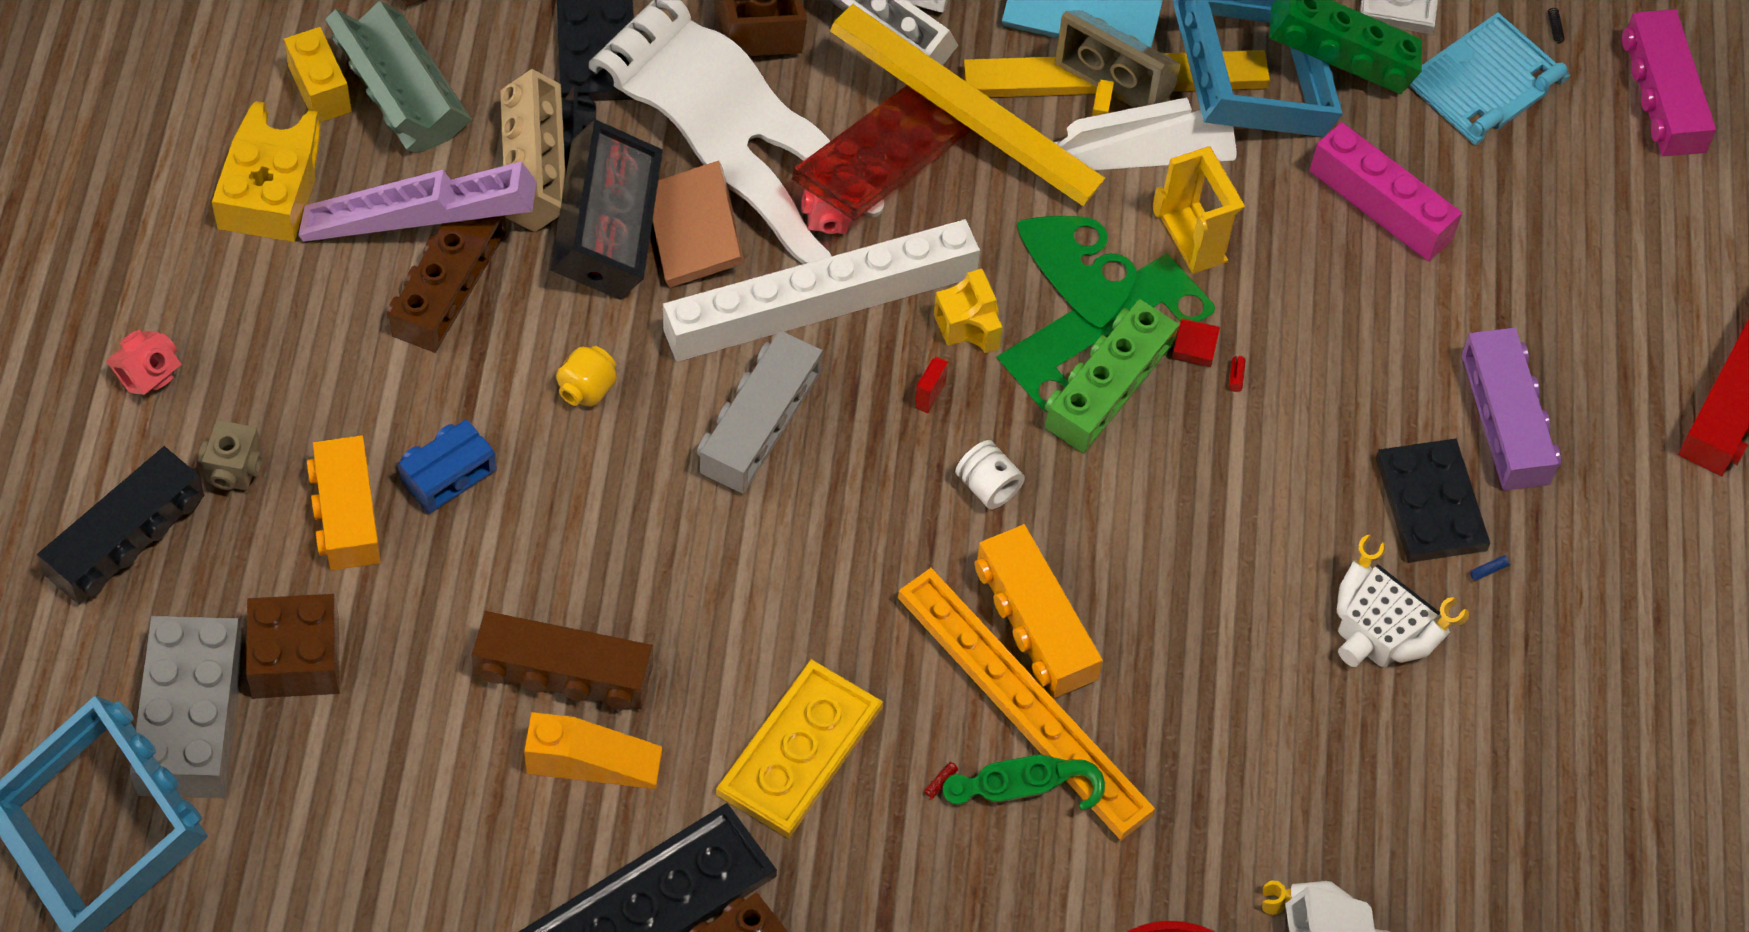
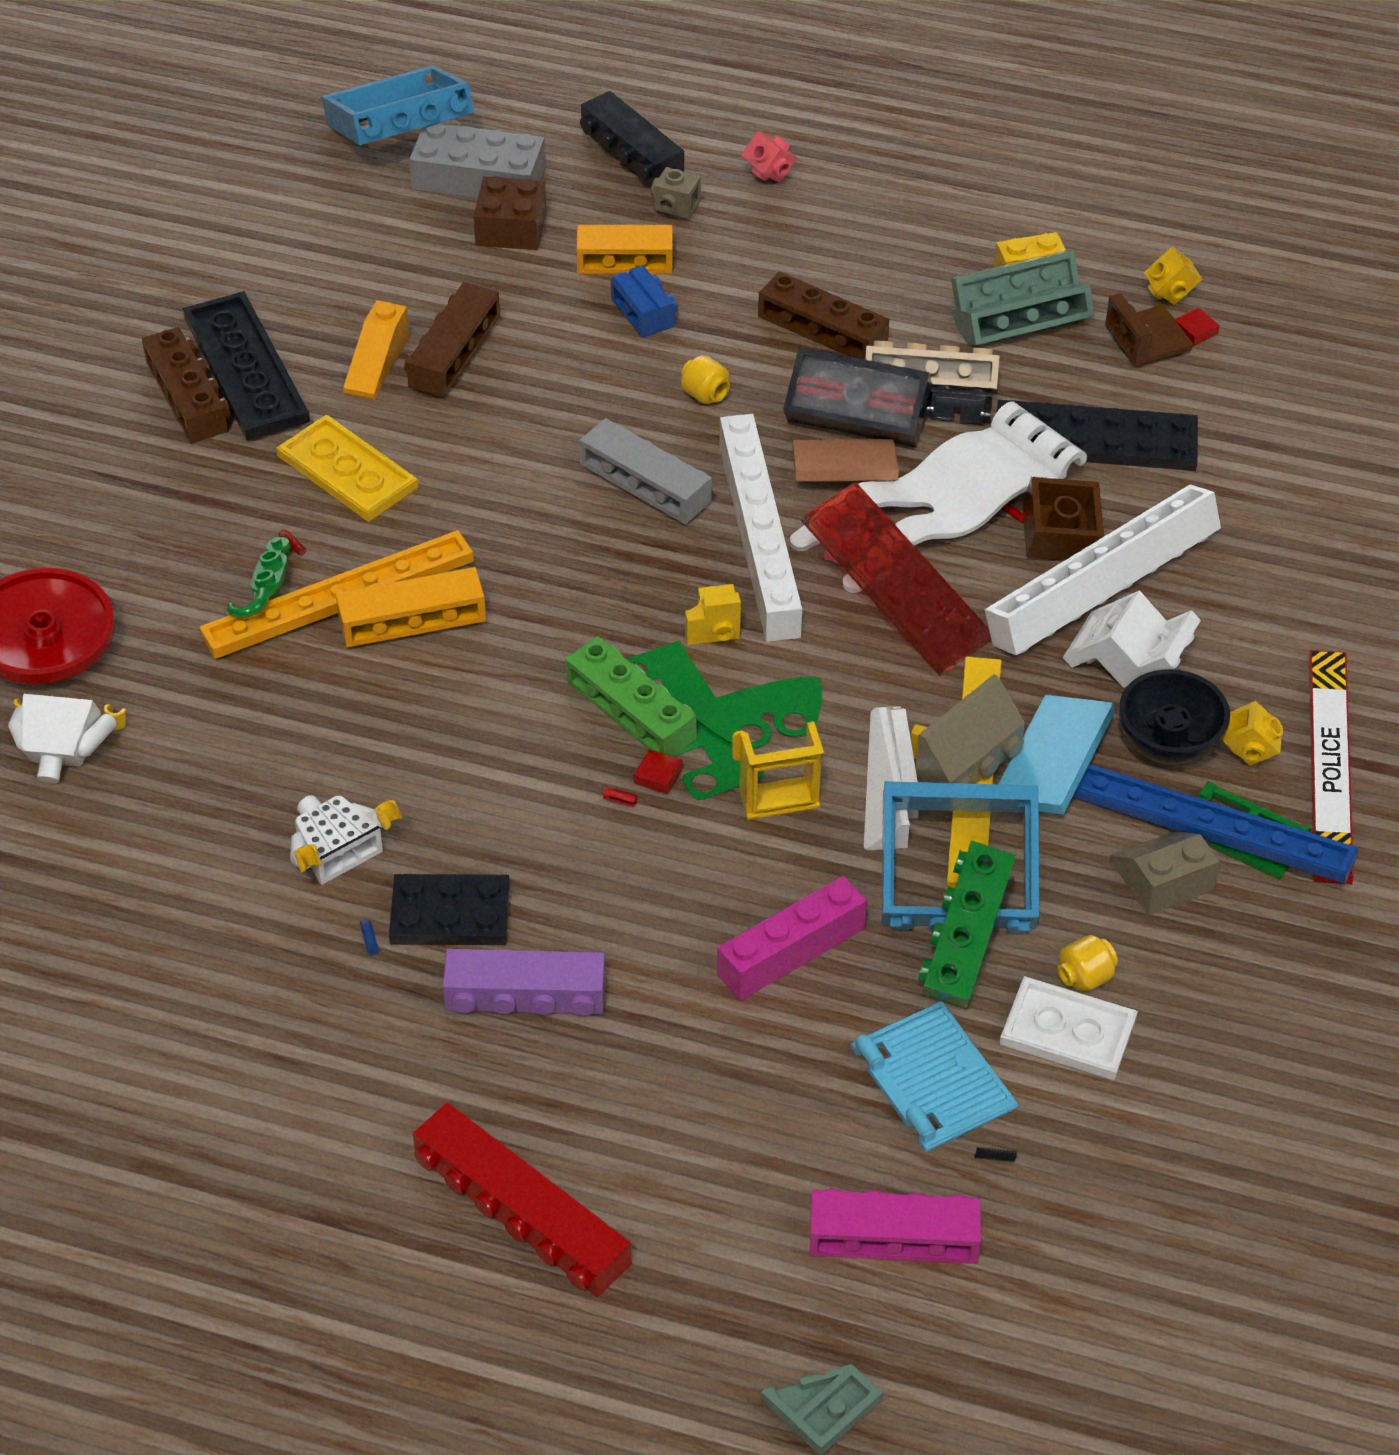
camera: 105 degrees right, 10 degrees down
(268, 176) = (935, 229): yellow brick -> none
(422, 202) = (876, 294): lavender slope -> none
(931, 384) = (650, 581): red tile -> none
(967, 104) = (931, 635): yellow tile -> none
(990, 474) = (550, 601): white piece -> none

